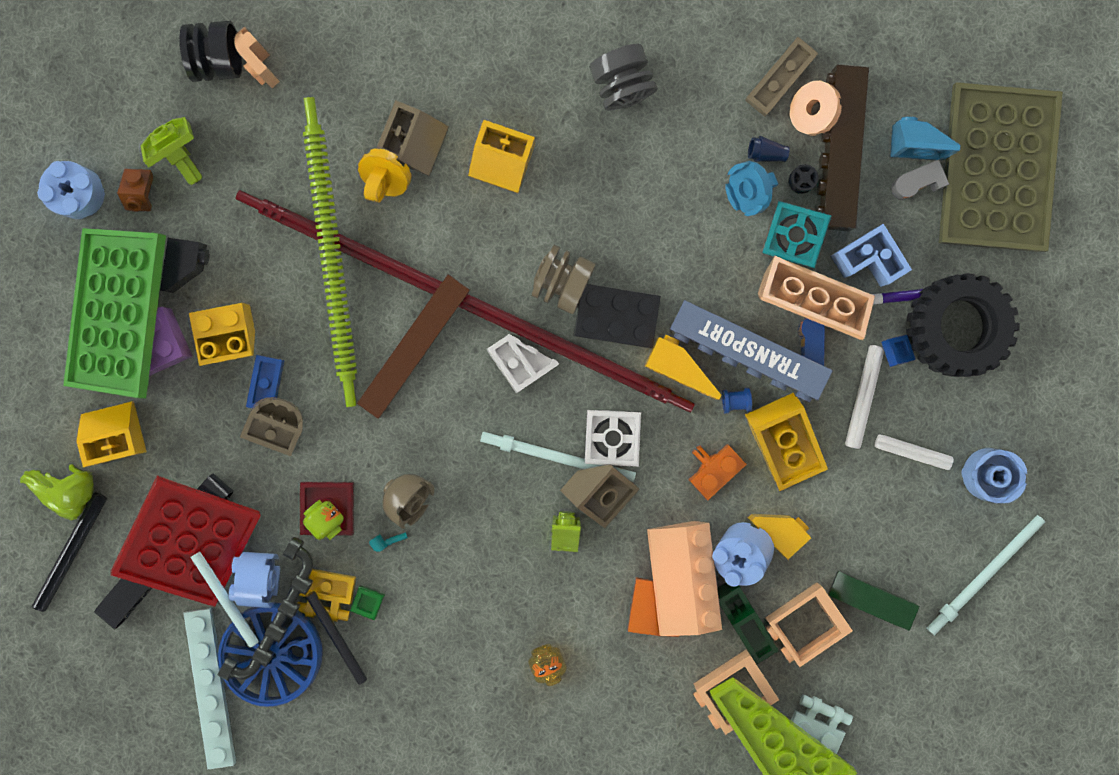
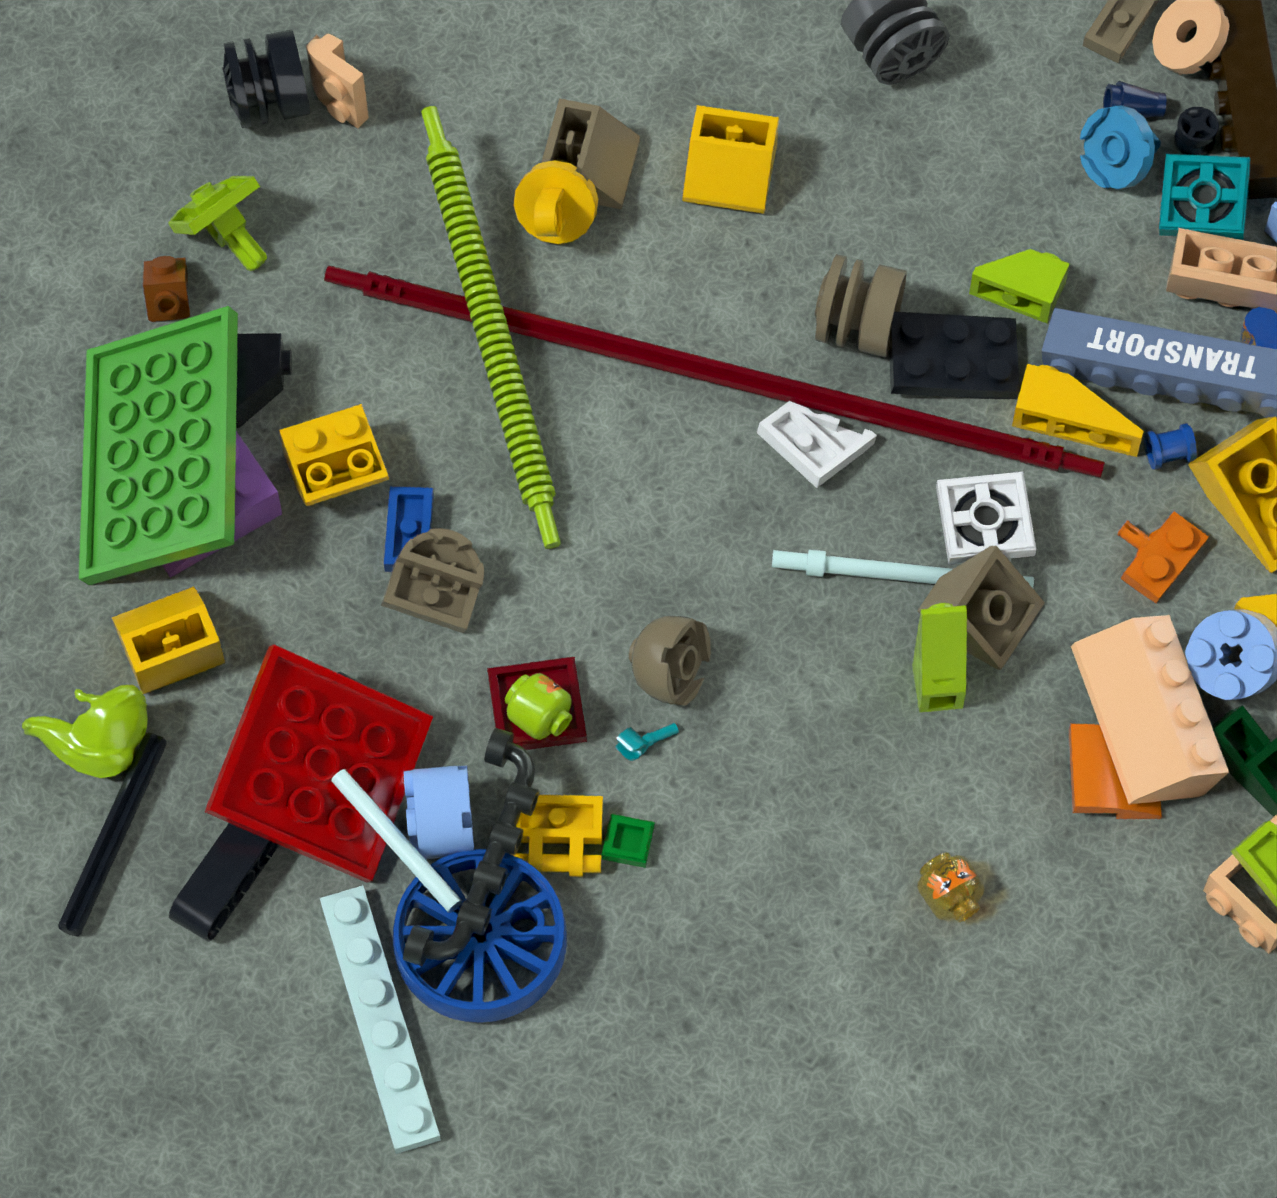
camera: 10 degrees left, 25 degrees down
(56, 190) = (67, 296): light blue brick -> none
(336, 637) = (588, 894): black bar -> none
(413, 346) = (639, 441): reddish brown tile -> none
(671, 273) = (1022, 282): none -> lime slope

